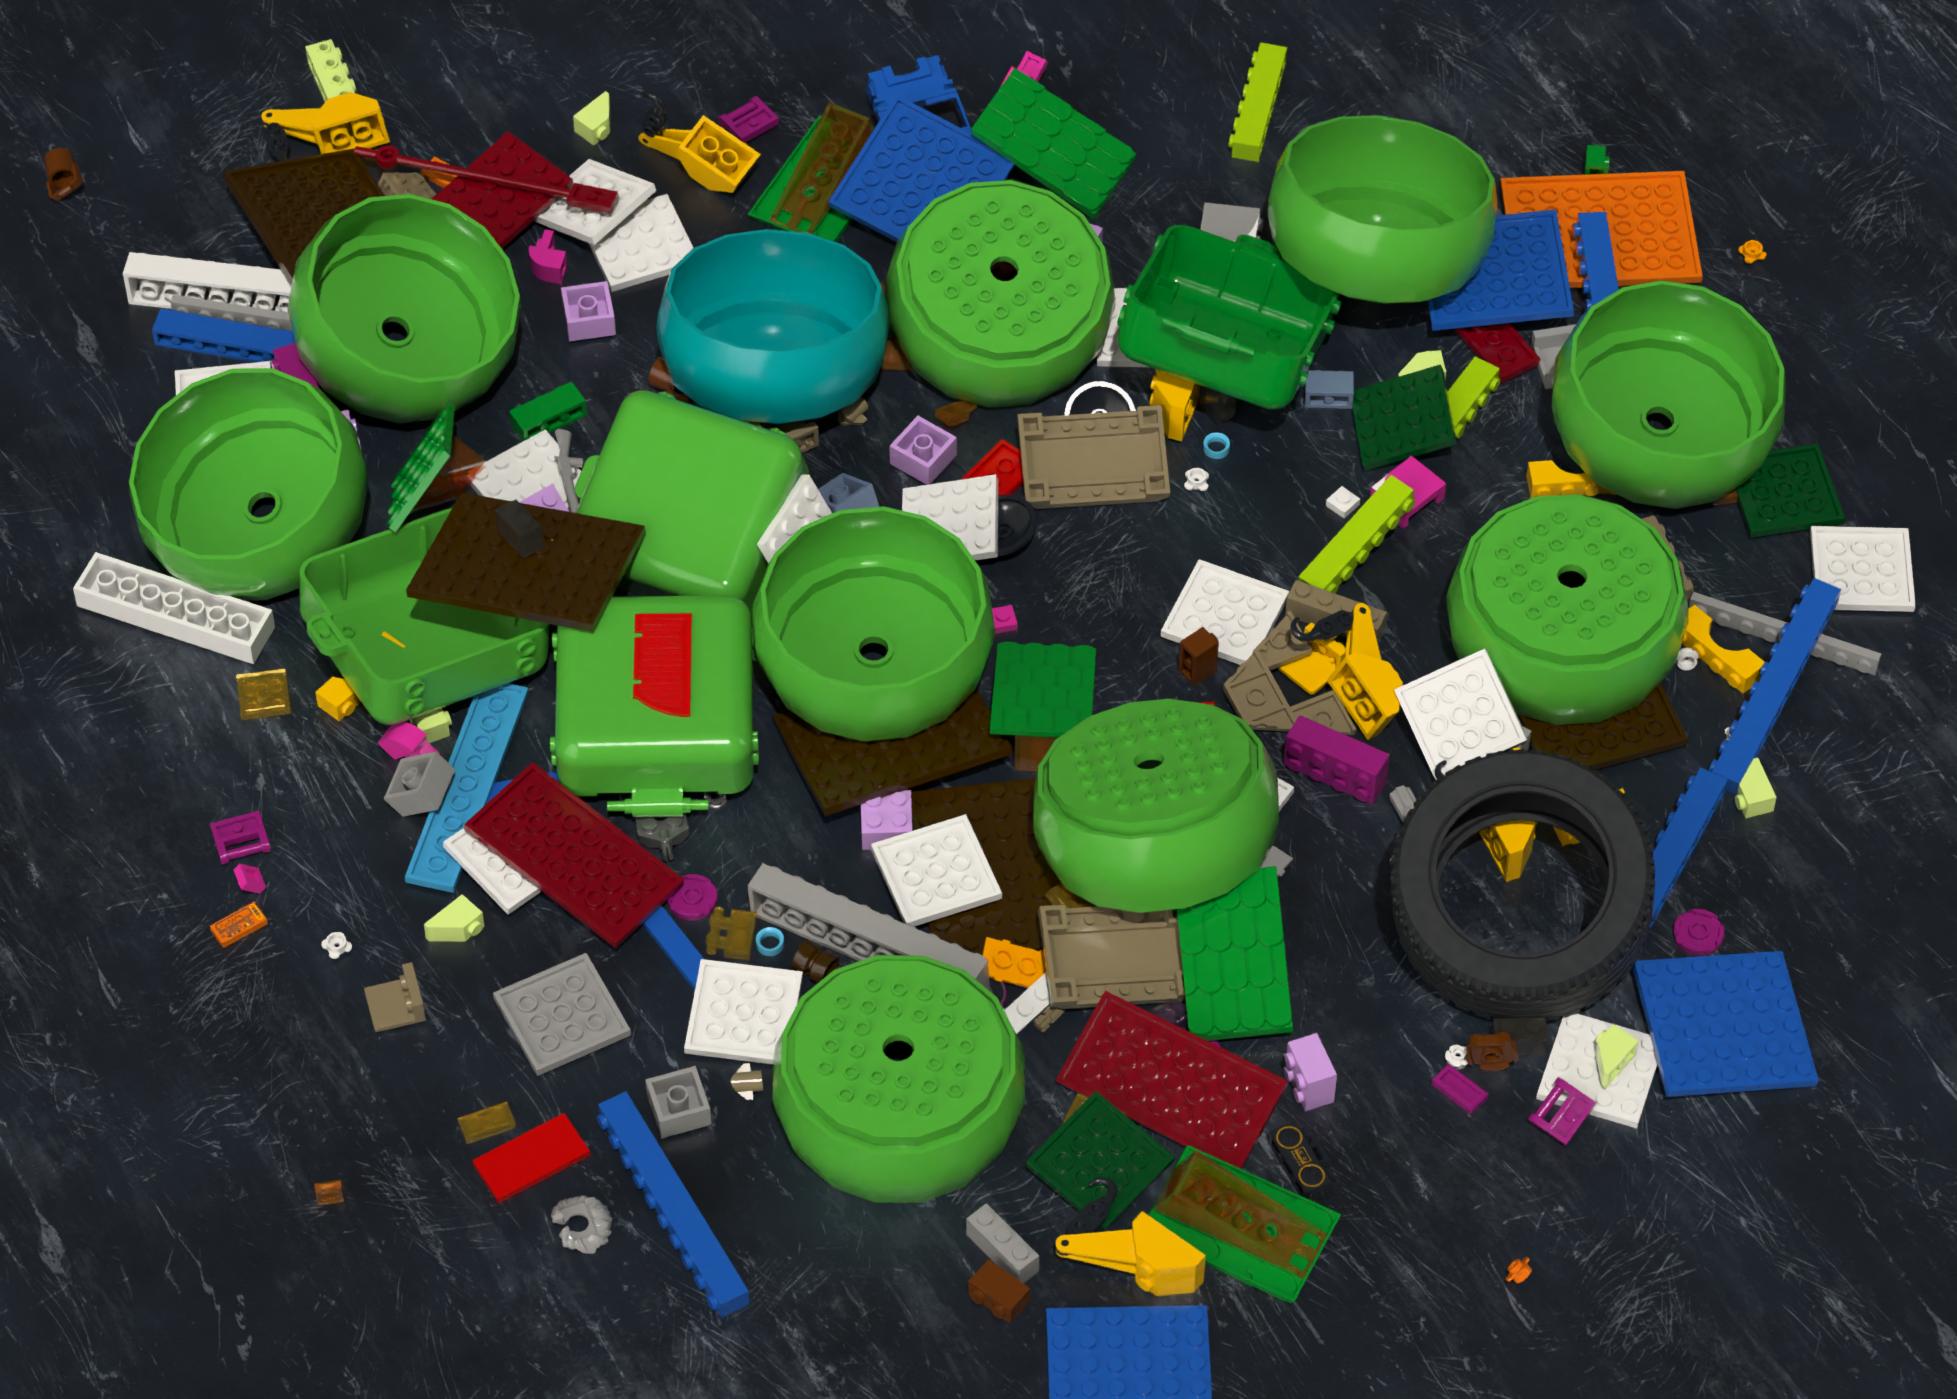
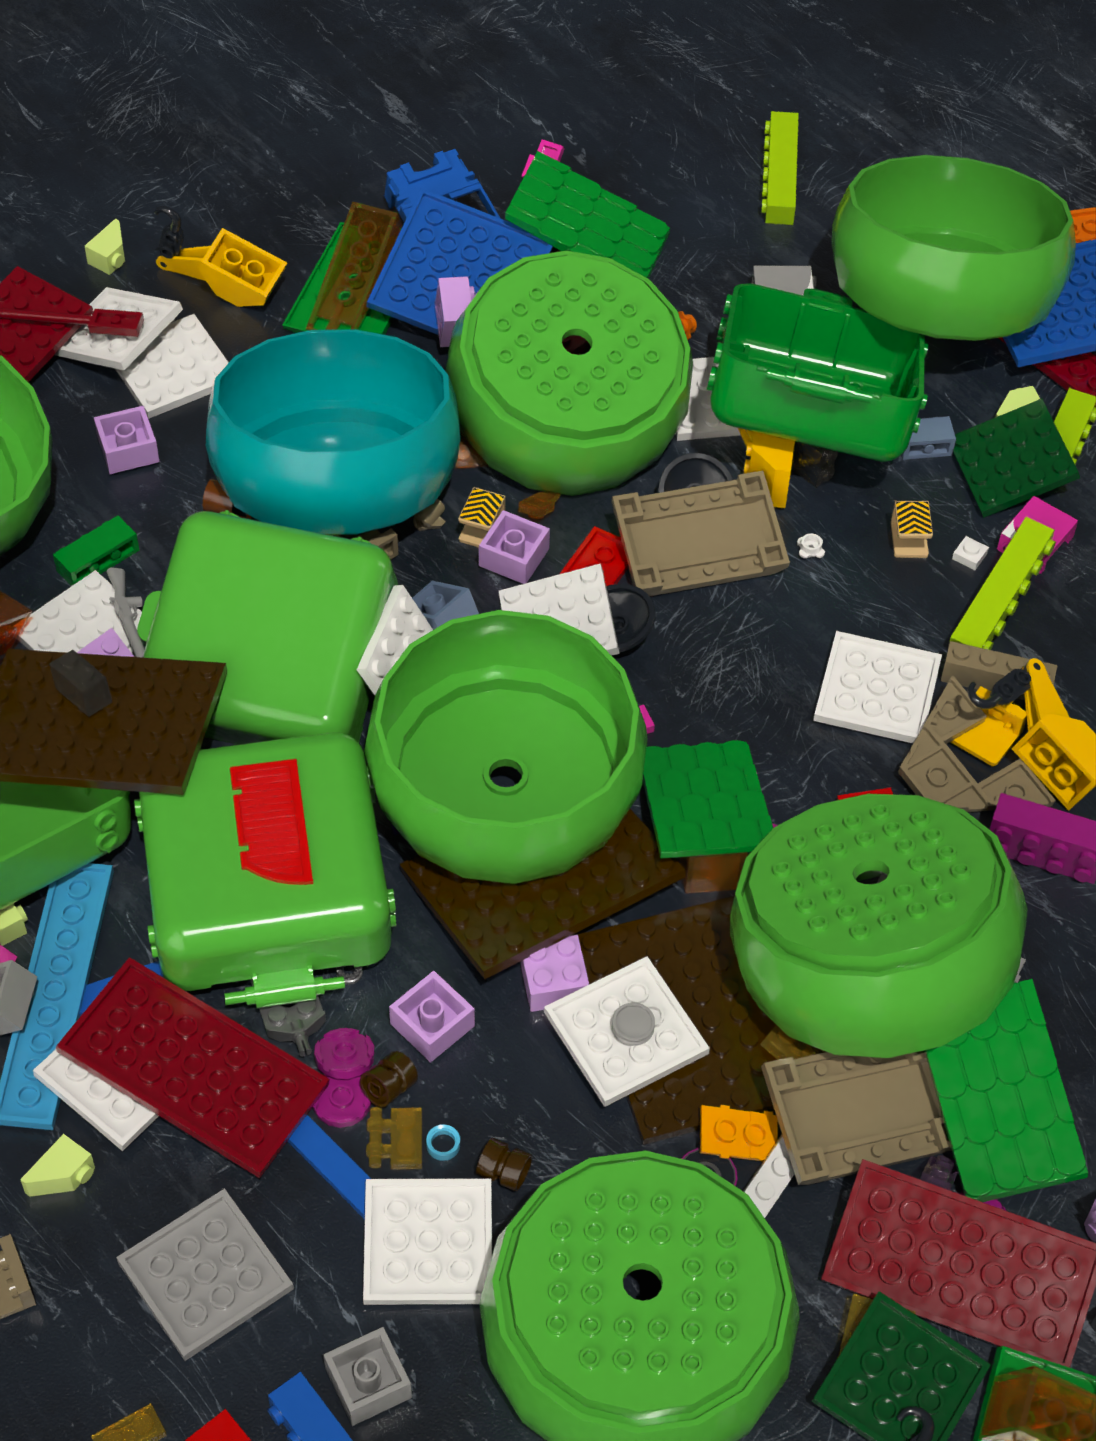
camera: 10 degrees left, 0 degrees up
(545, 261) = (74, 394): dark pink brick -> none
(700, 862) = (344, 1053): none -> magenta tile
(730, 885) = (388, 1078): none -> dark brown wheel
(746, 1082) = (447, 1333): dark tan piece -> none
(751, 124) = (270, 232): magenta plate -> none
(777, 839) = (432, 1016): none -> lavender brick
(848, 926) = (545, 1115): light grey brick -> none
(897, 416) = (479, 515): none -> piece
(905, 209) = (451, 300): none -> lavender brick
(941, 865) = (633, 1024): none -> light grey piece
(1049, 1015) = (791, 1197): dark tan axle -> none
(1128, 254) = (688, 323): none -> orange plate
(1198, 656) = (865, 738): reddish brown brick -> none
(1219, 437) = (822, 500): medium azure piece -> none
(1291, 474) = (911, 529): none -> piece

